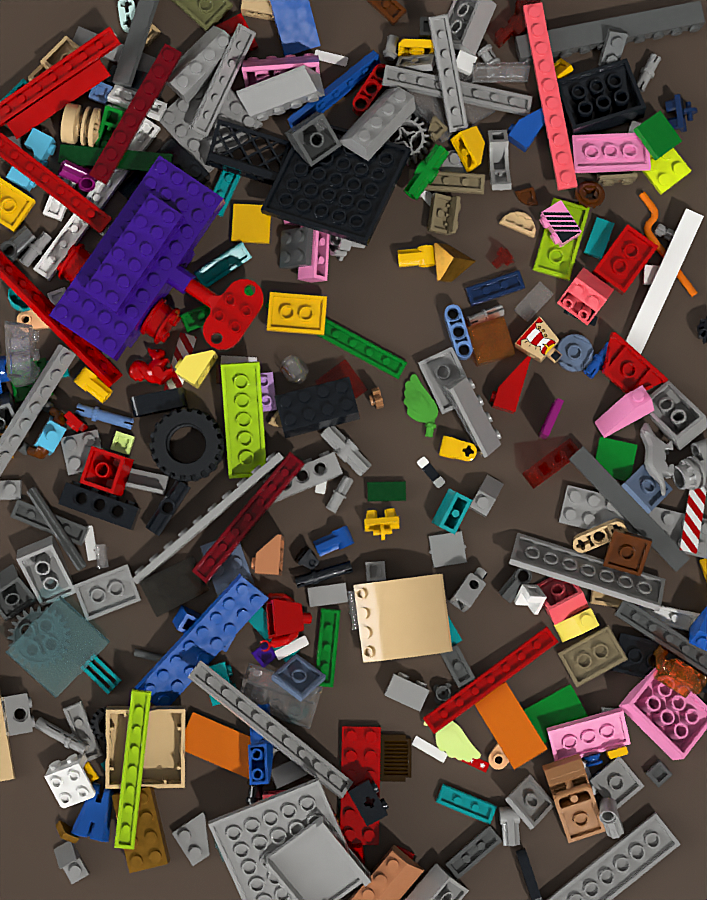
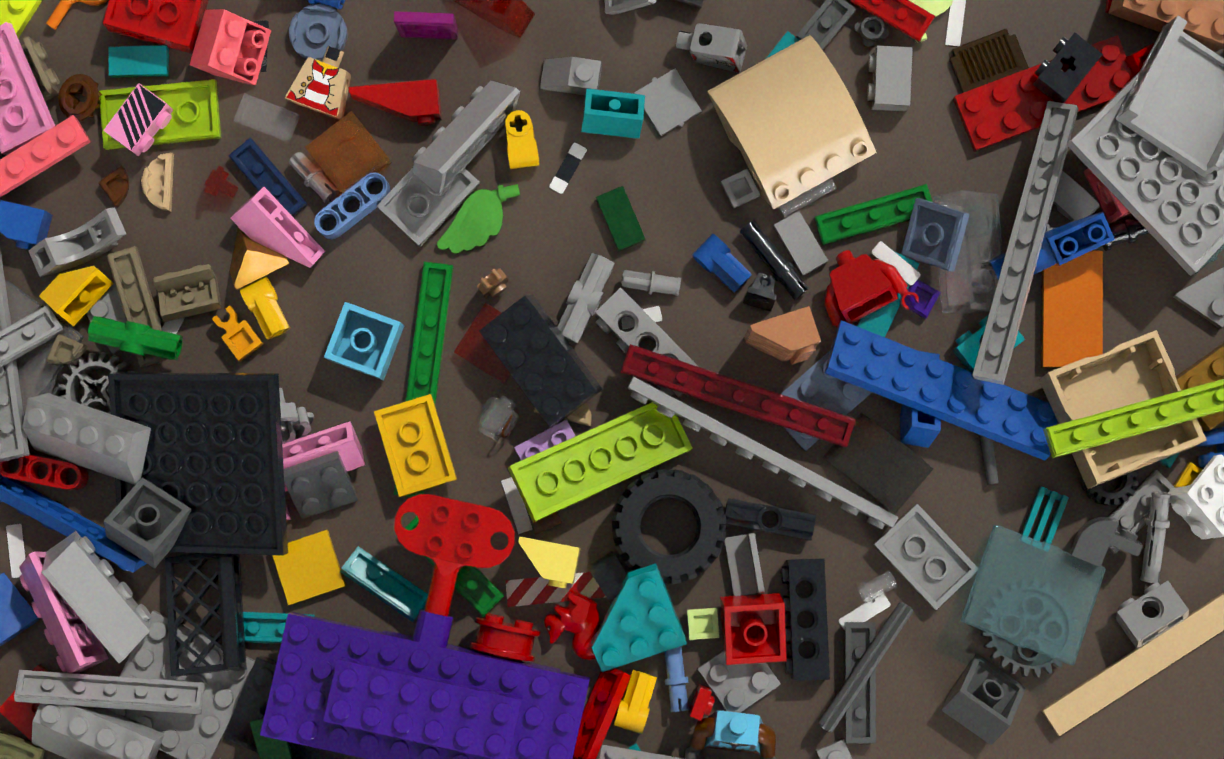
camera: 105 degrees left, 0 degrees up
(46, 570) = (931, 658): light grey slope -> none
(76, 701) = (1096, 536): none -> dark grey brick
(137, 403) = (638, 622): none -> teal plate
(371, 307) = (364, 341): none -> medium azure brick
(382, 525) = (662, 196): yellow hips -> none
(404, 234) = (239, 336): none -> light orange plate
(462, 280) = (273, 226): none -> bright pink slope

